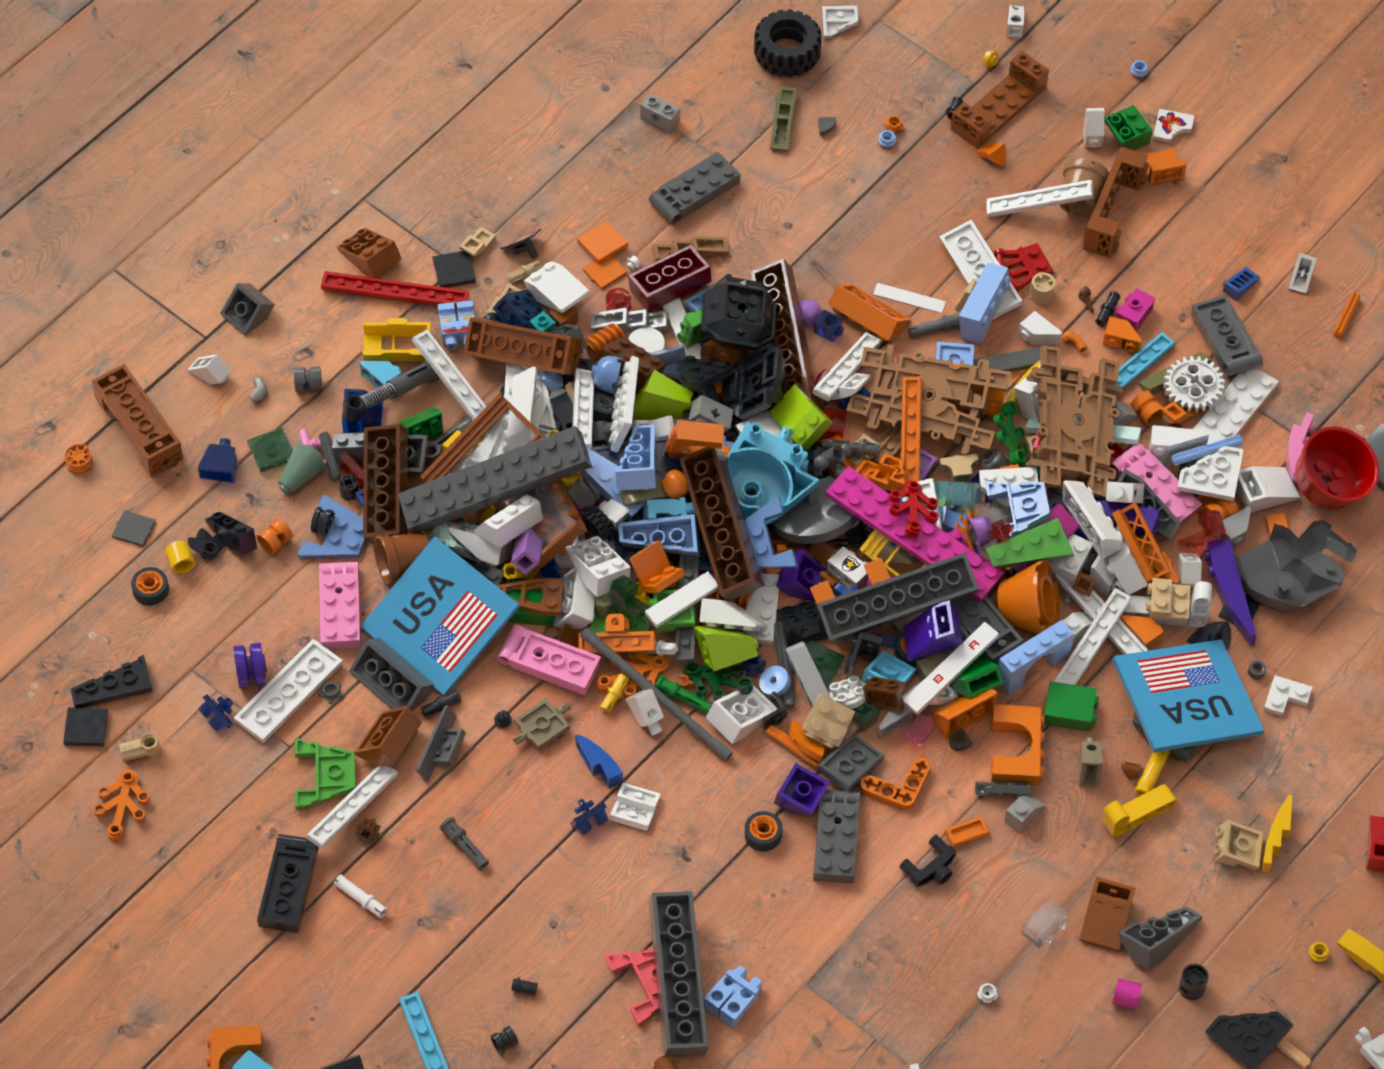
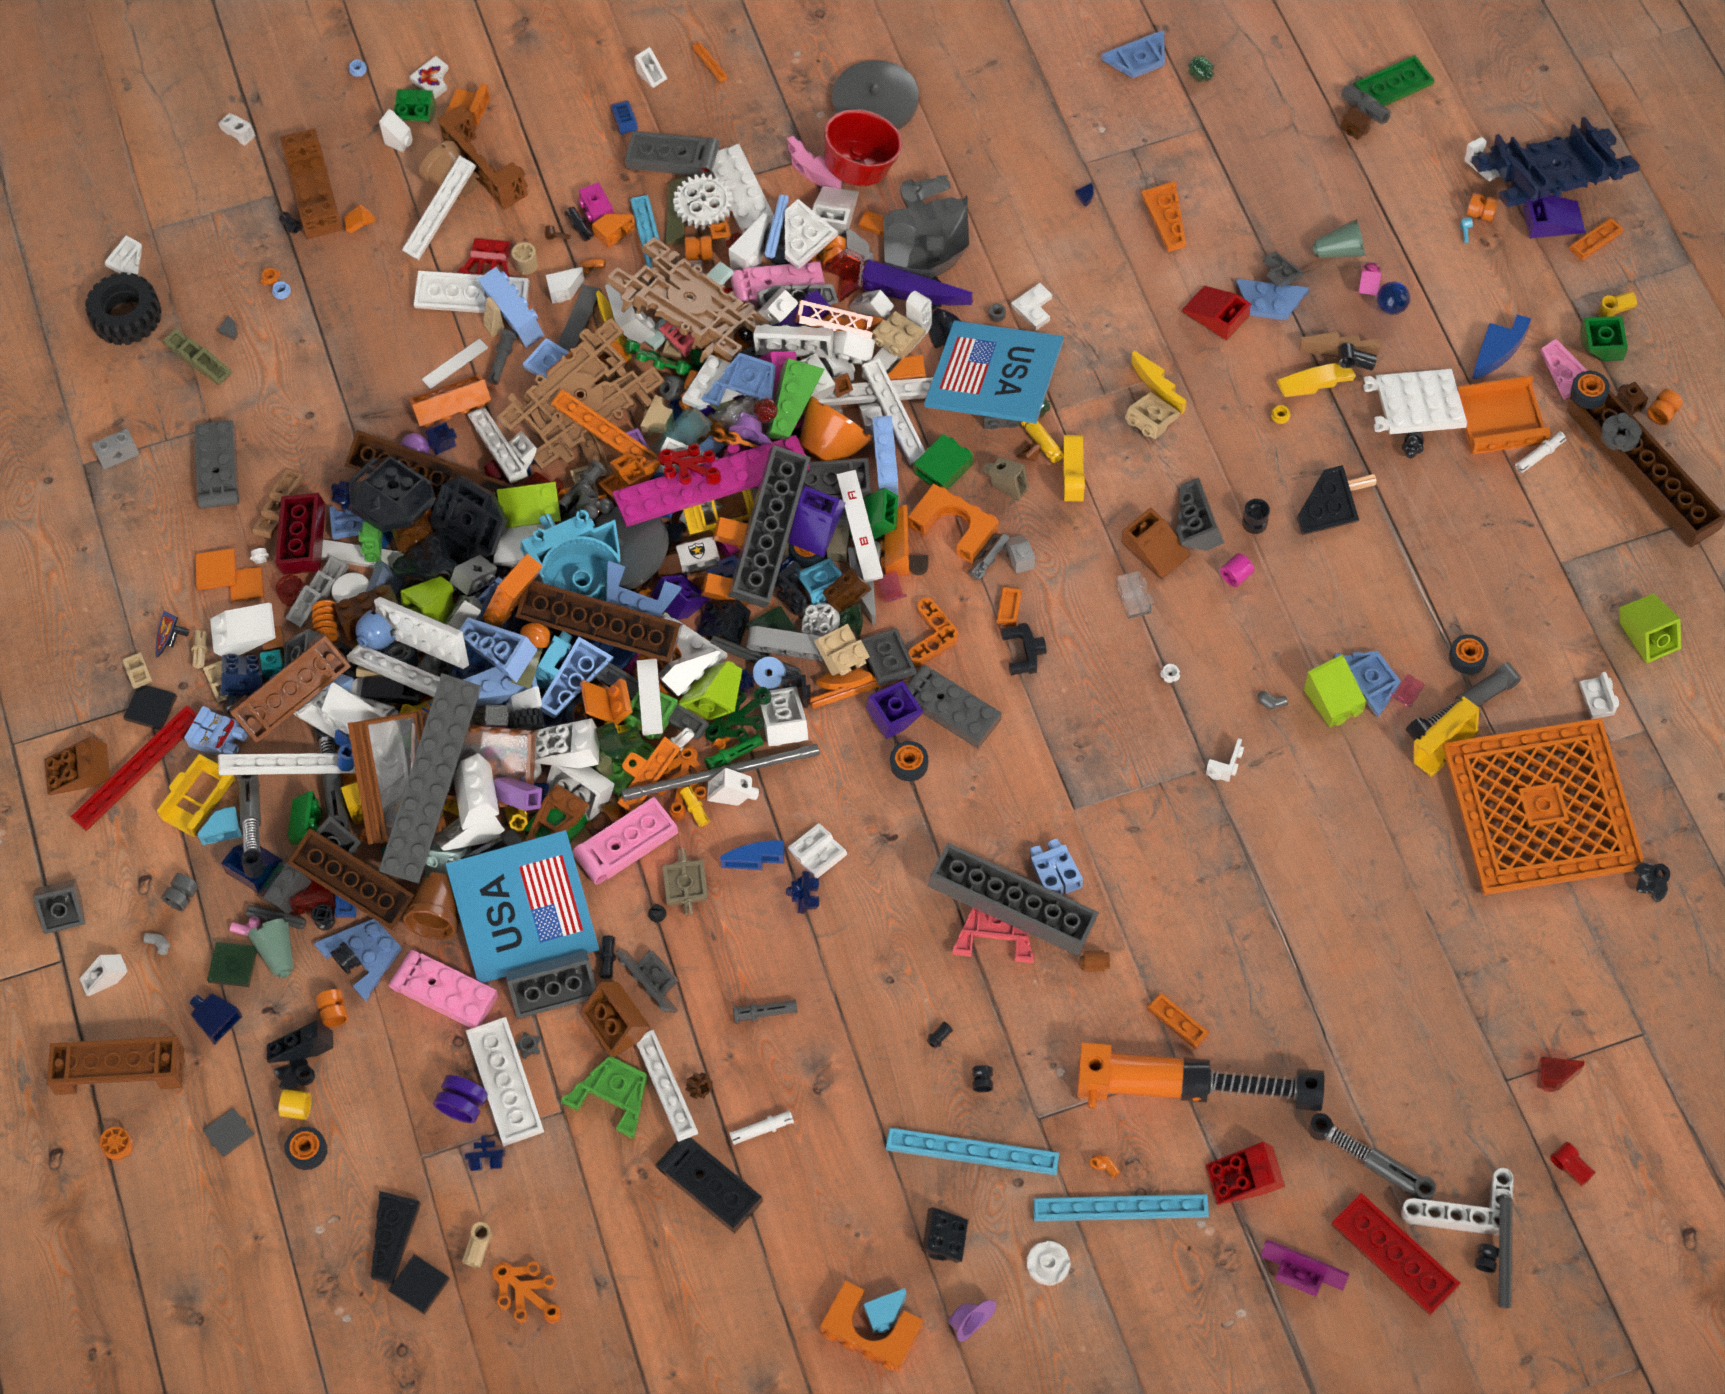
camera: 55 degrees left, 5 degrees up
(990, 58) = (261, 168): yellow plate -> none

